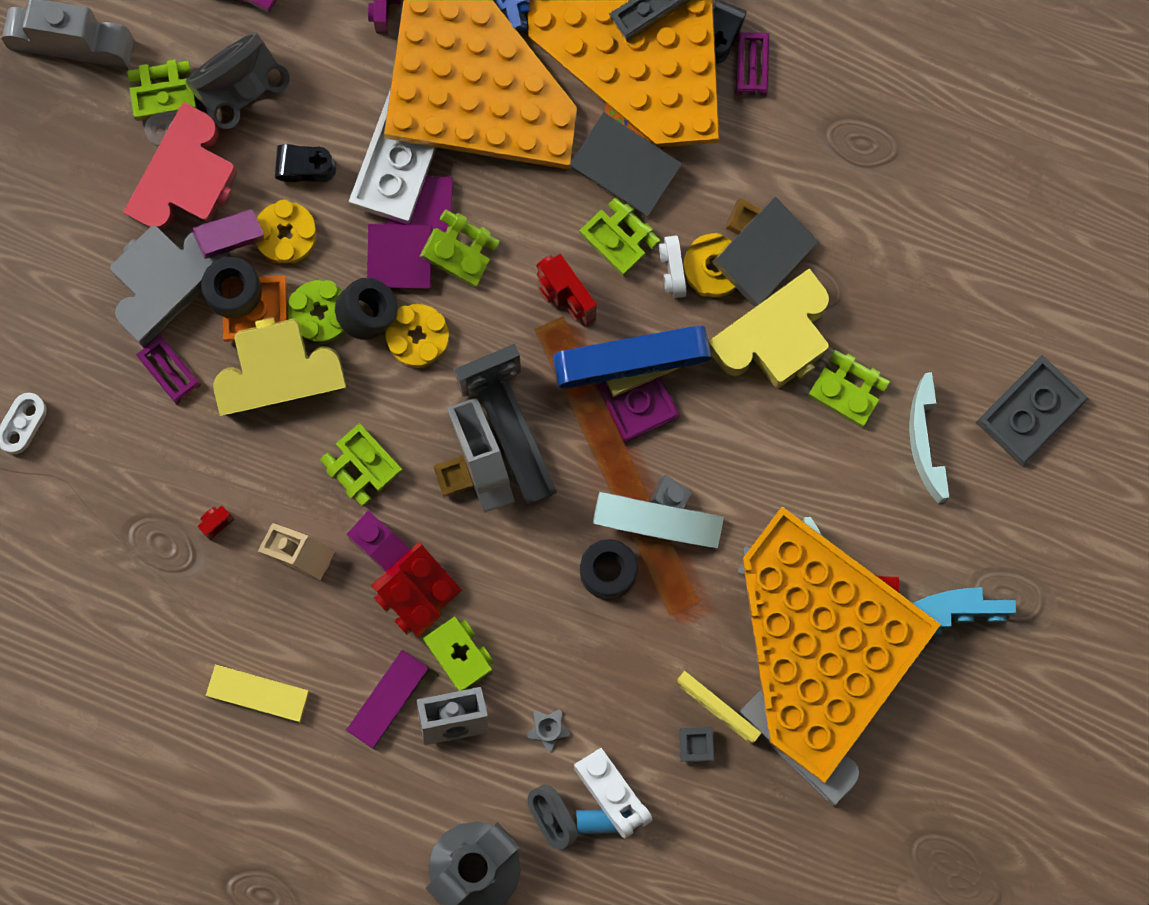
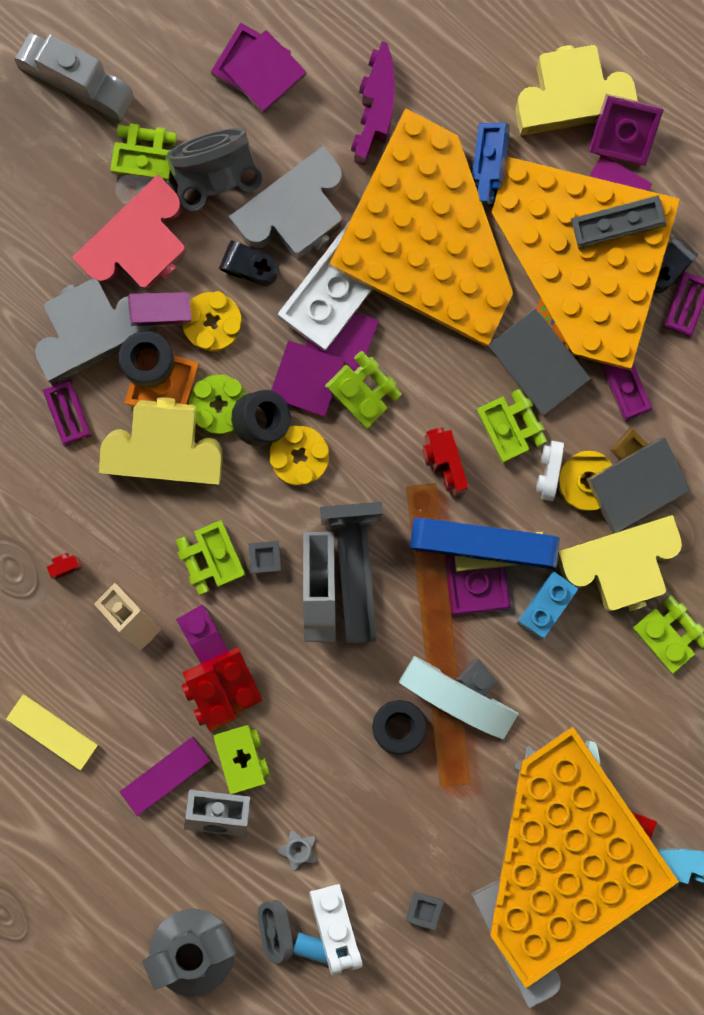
camera: 15 degrees right, 5 degrees up
(331, 94) = (294, 208): none -> light grey brick
(416, 446) = (264, 557): none -> dark grey plate
(453, 476) = (288, 595): pearl gold plate -> none
(715, 399) = (547, 605): none -> dark azure brick
(718, 707) = (454, 884): light yellow tile -> none
(722, 165) = (627, 391): none -> magenta tile

